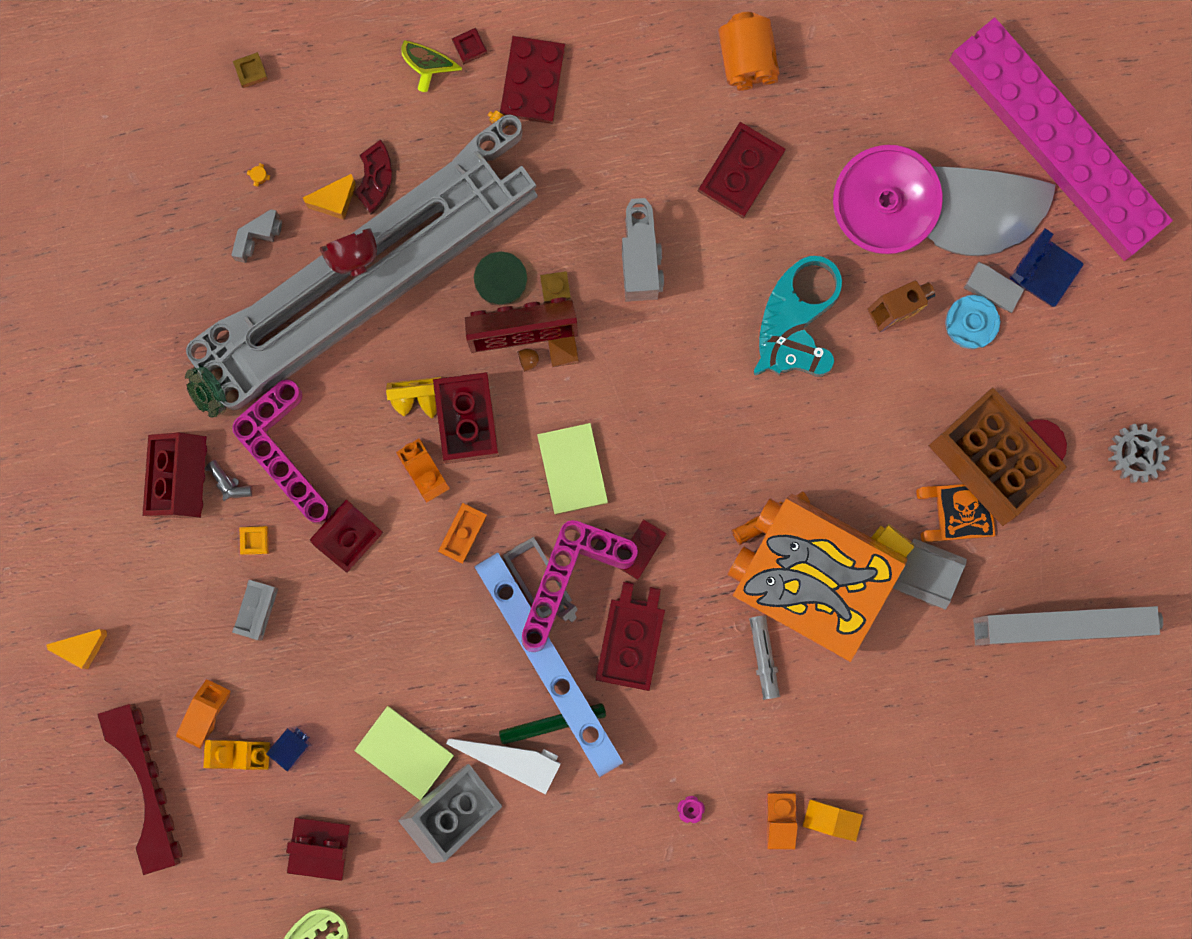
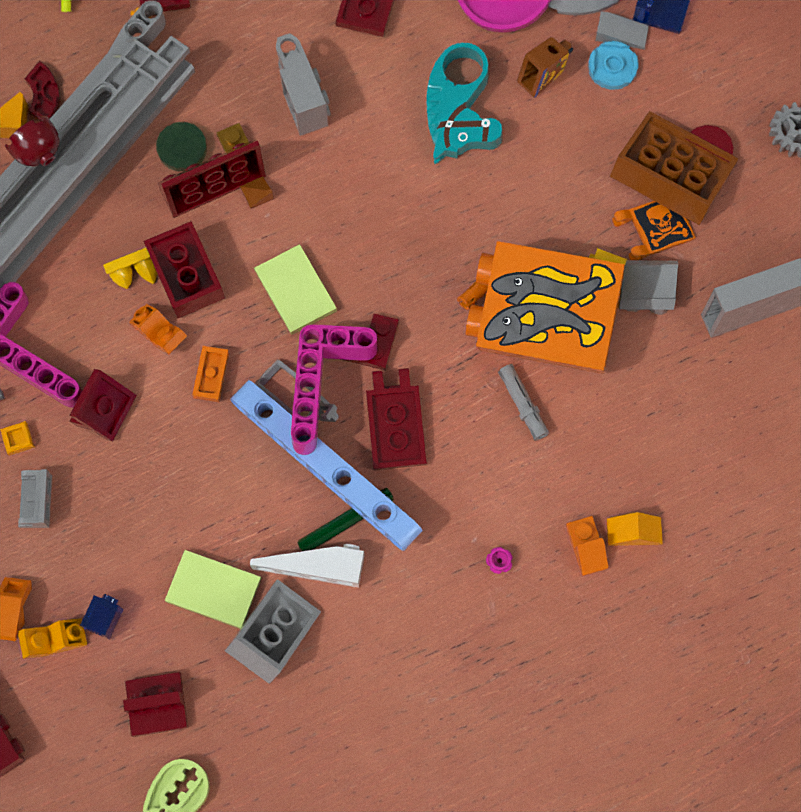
camera: 15 degrees left, 10 degrees down
(528, 358) = (226, 206): dark orange hinge -> none

